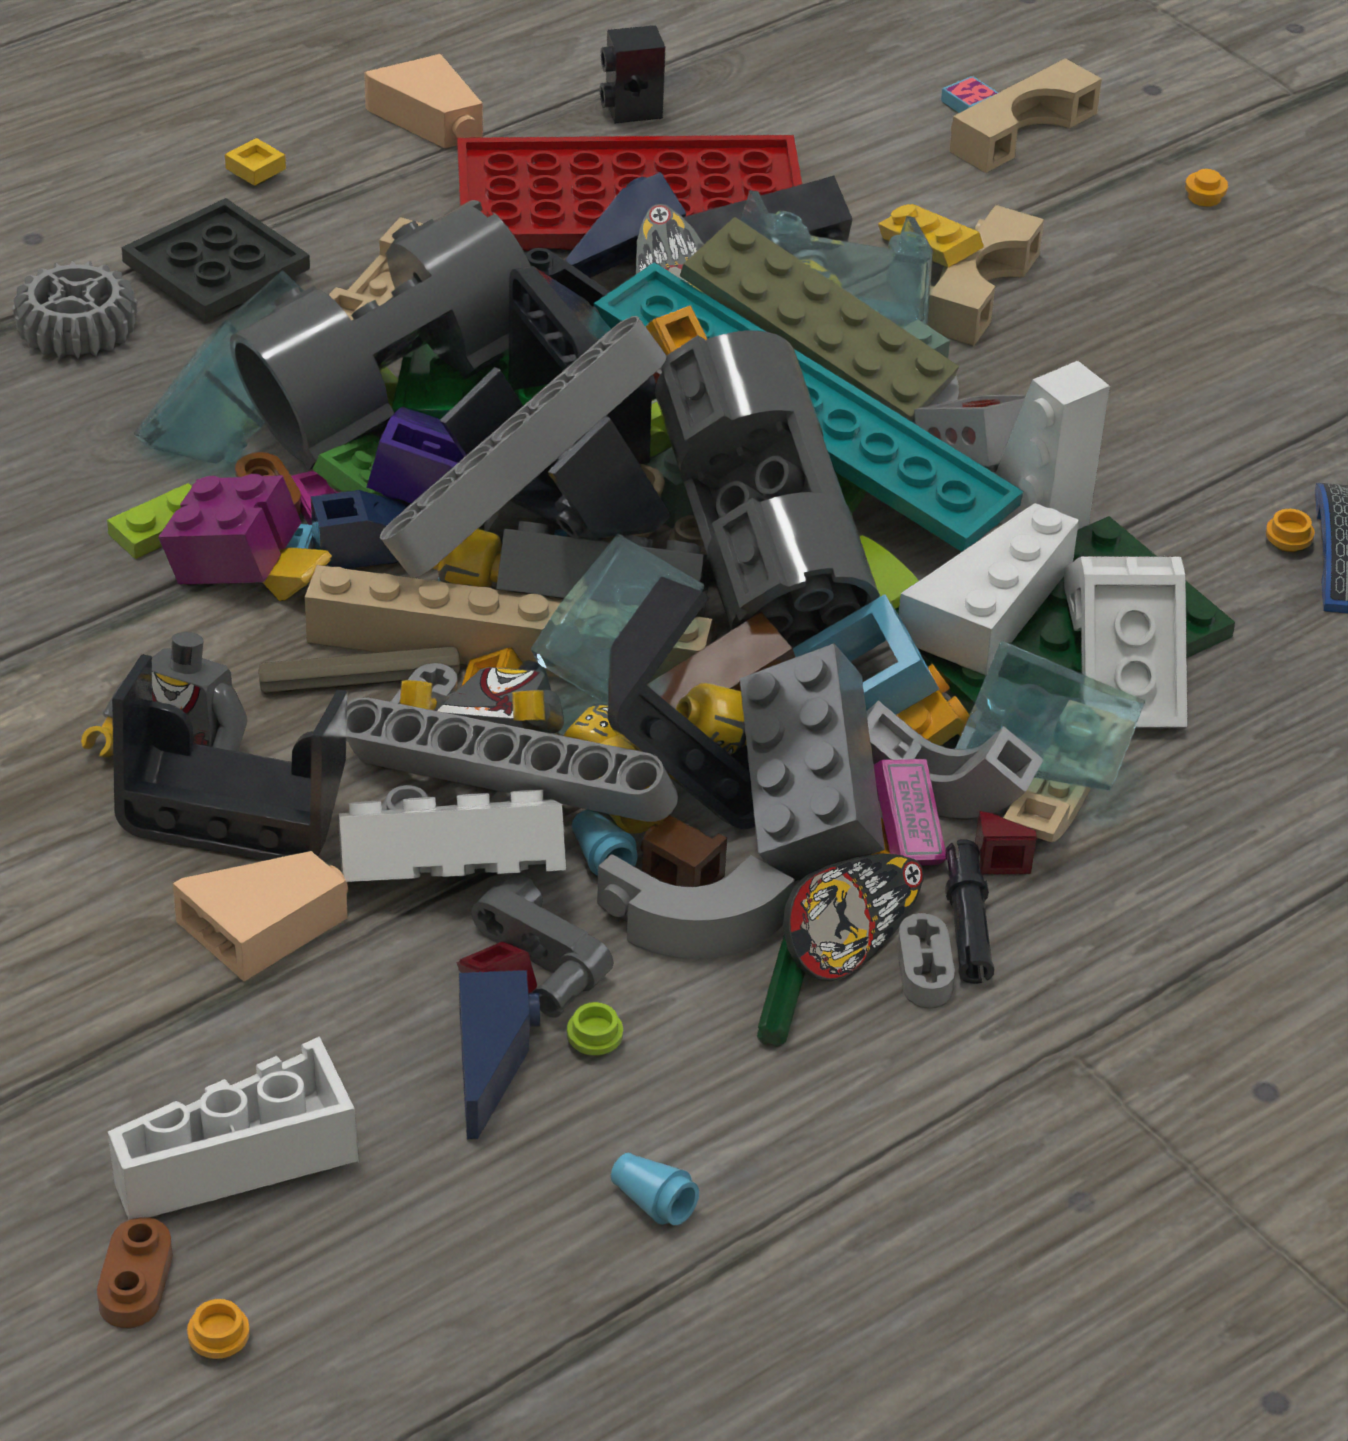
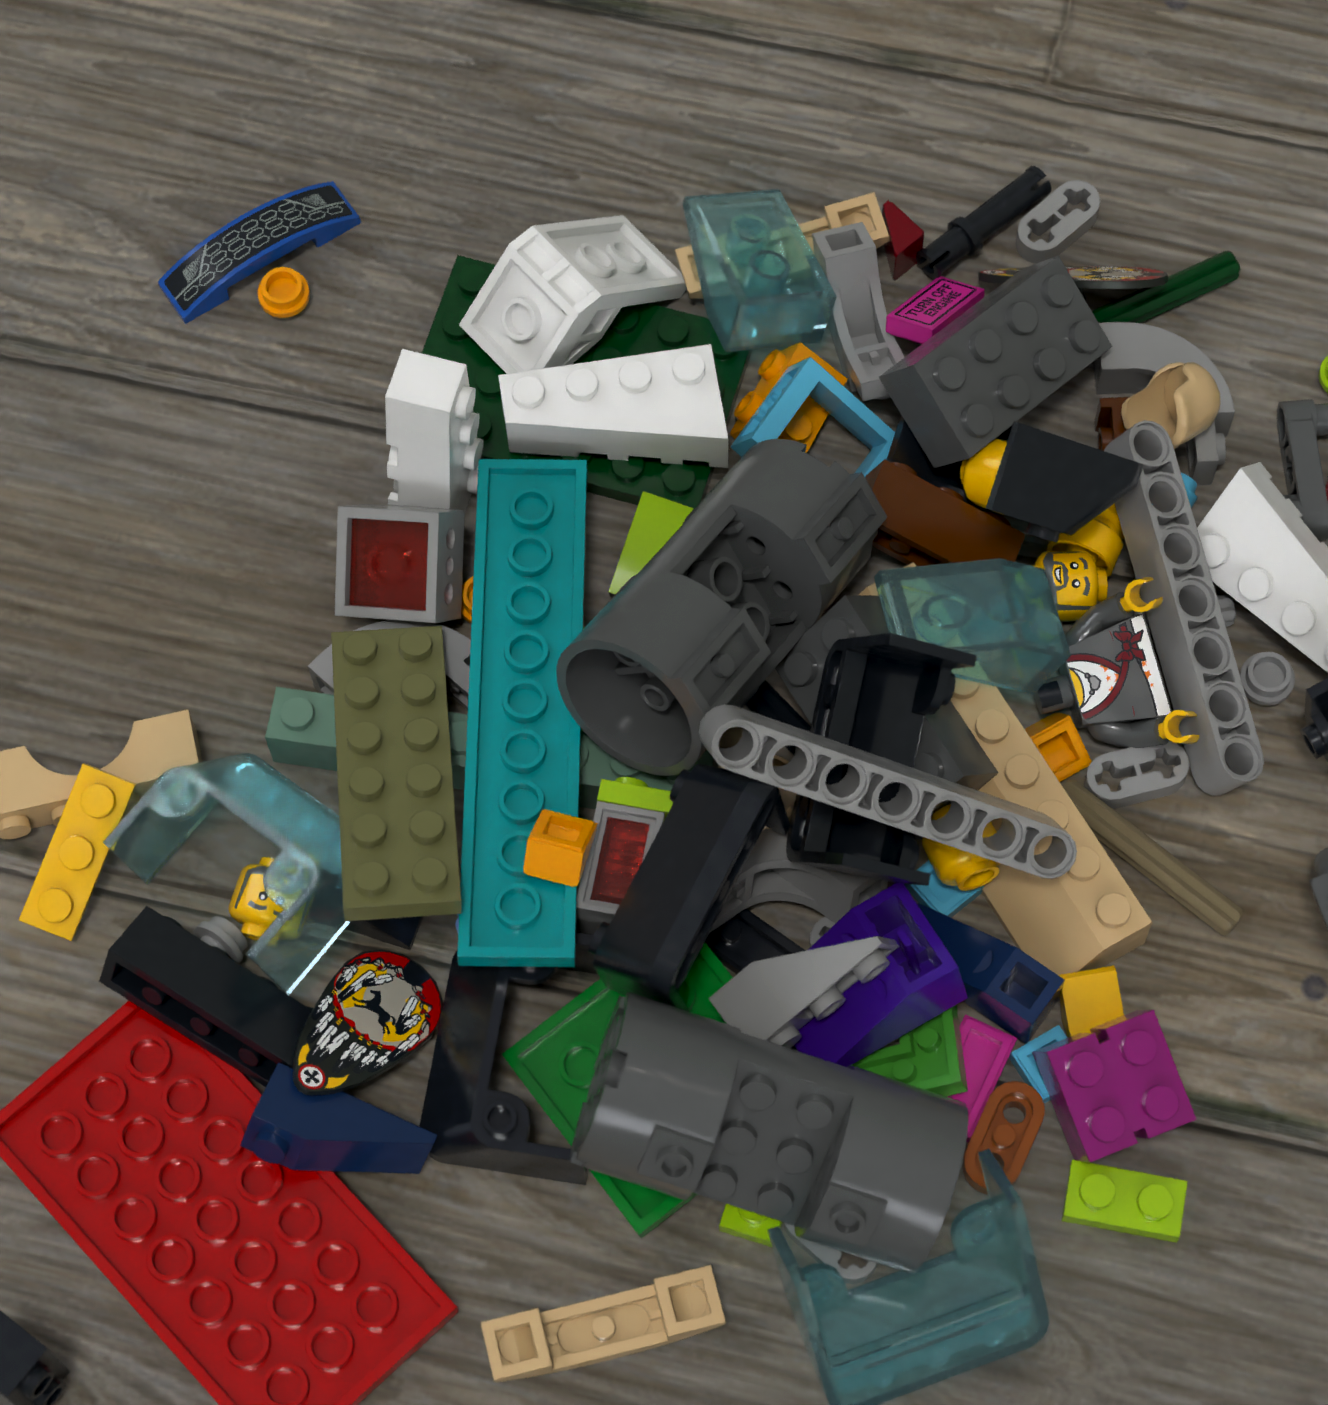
camera: 125 degrees left, 25 degrees up
(452, 383) = (787, 991): none -> light grey slope
(658, 845) = (1179, 399): none -> tan hair

